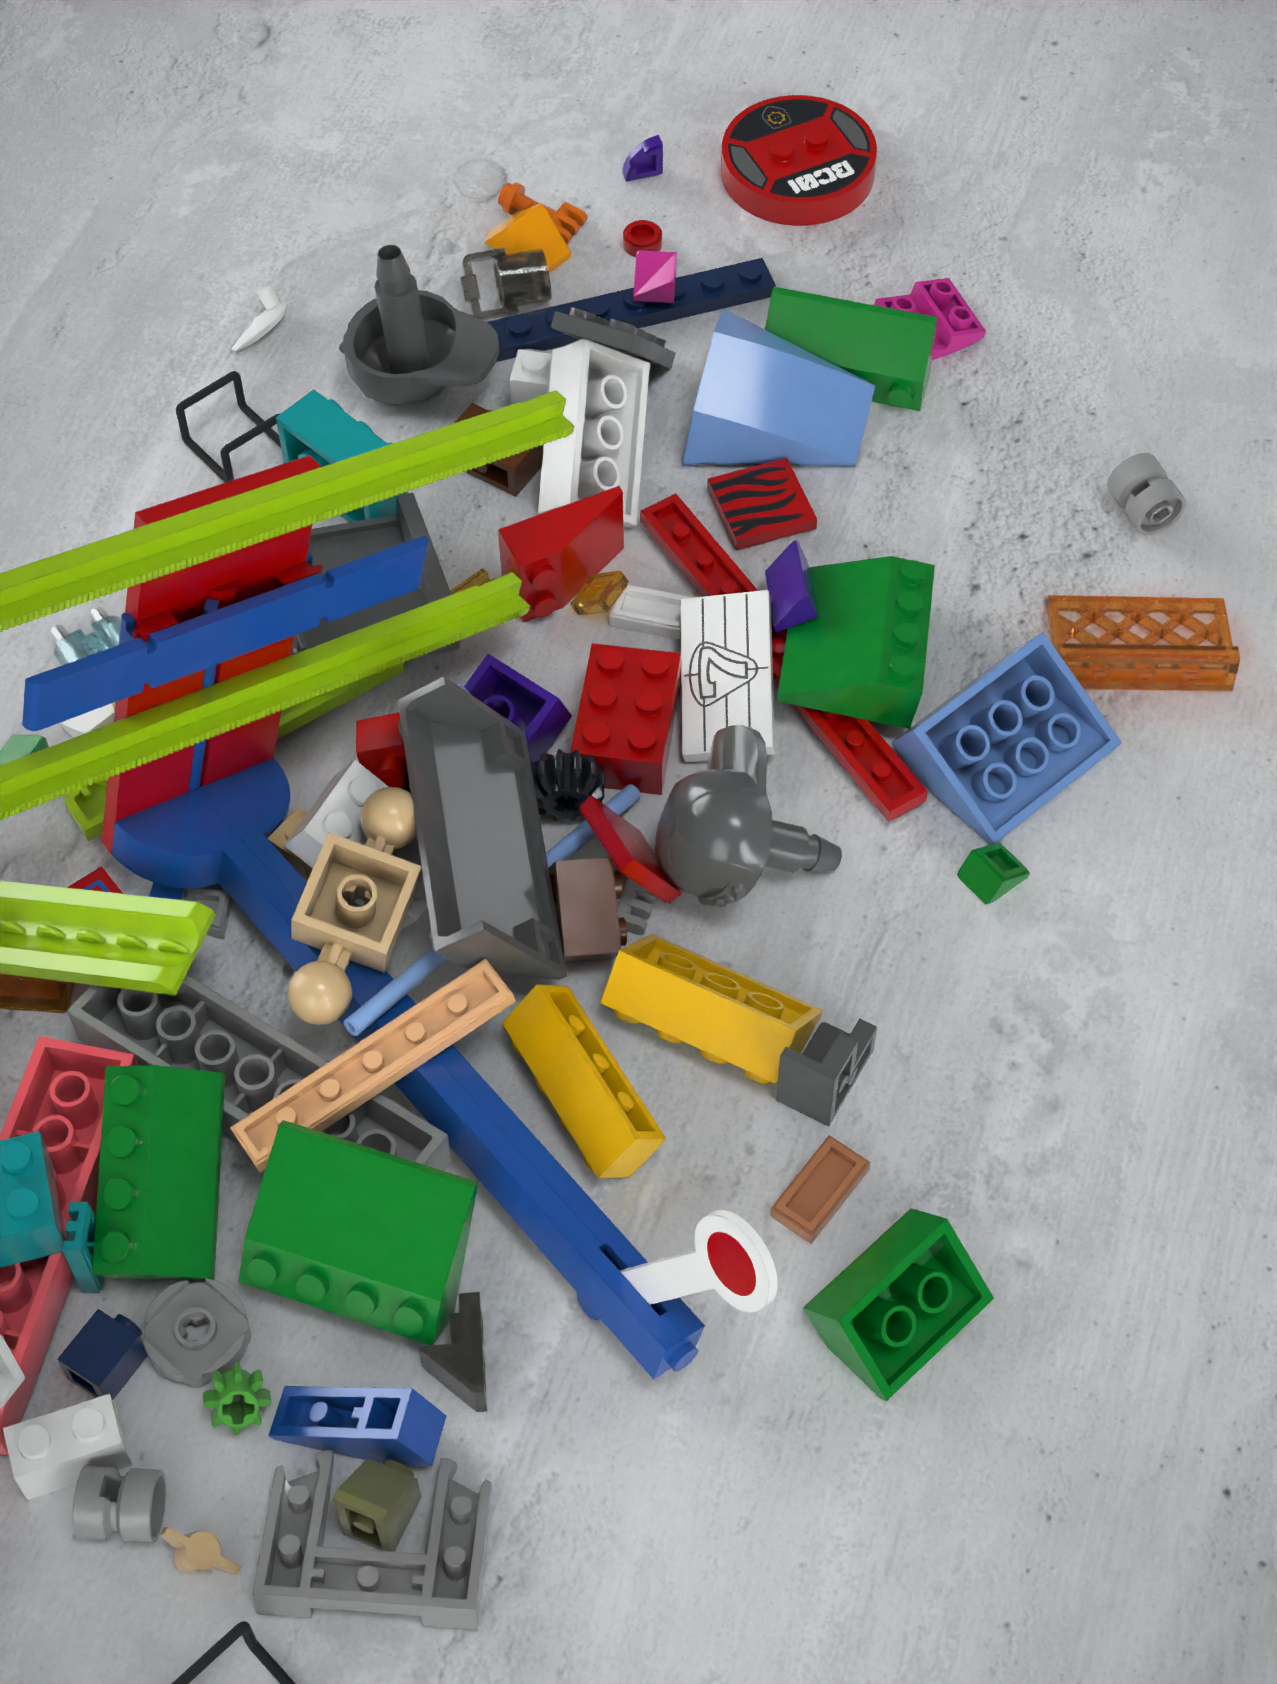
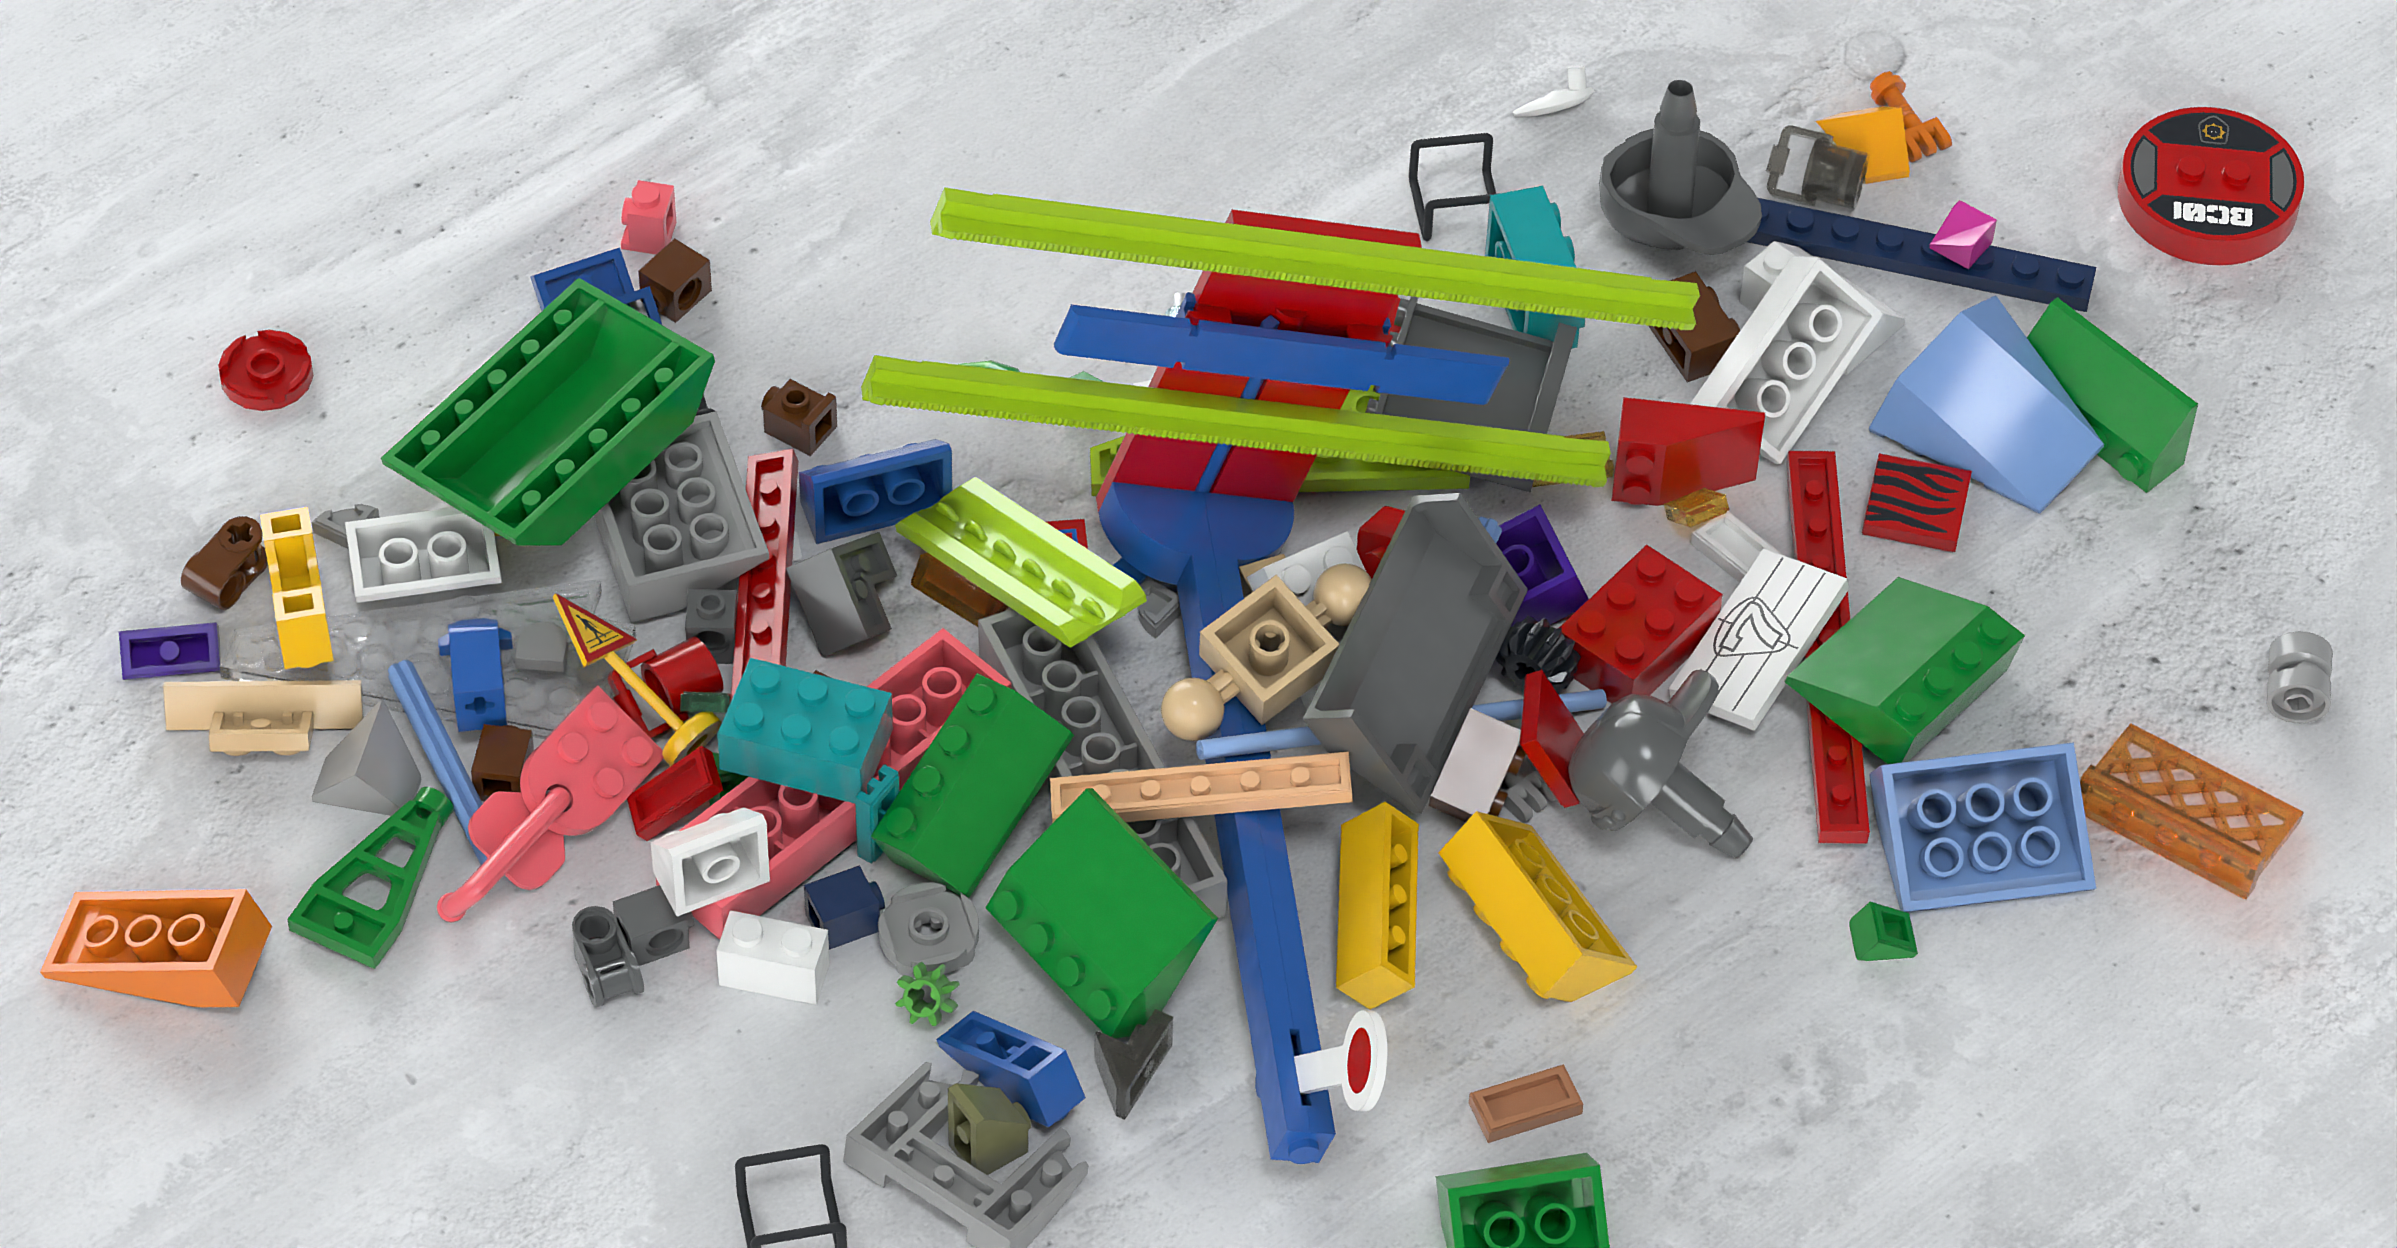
camera: 30 degrees right, 5 degrees down
(119, 1503) = (782, 1016): light grey wheel -> none
(197, 1552) = (825, 1088): tan piece -> none
(614, 335) = (1868, 273): dark grey plate -> none
(642, 236) = (1992, 191): red tile -> none
(644, 160) = (2049, 112): dark purple tile -> none
(790, 589) = (1874, 590): dark purple slope -> none
(825, 1071) = (1598, 1011): dark grey panel -> none
(955, 323) = (2231, 408): dark pink slope -> none

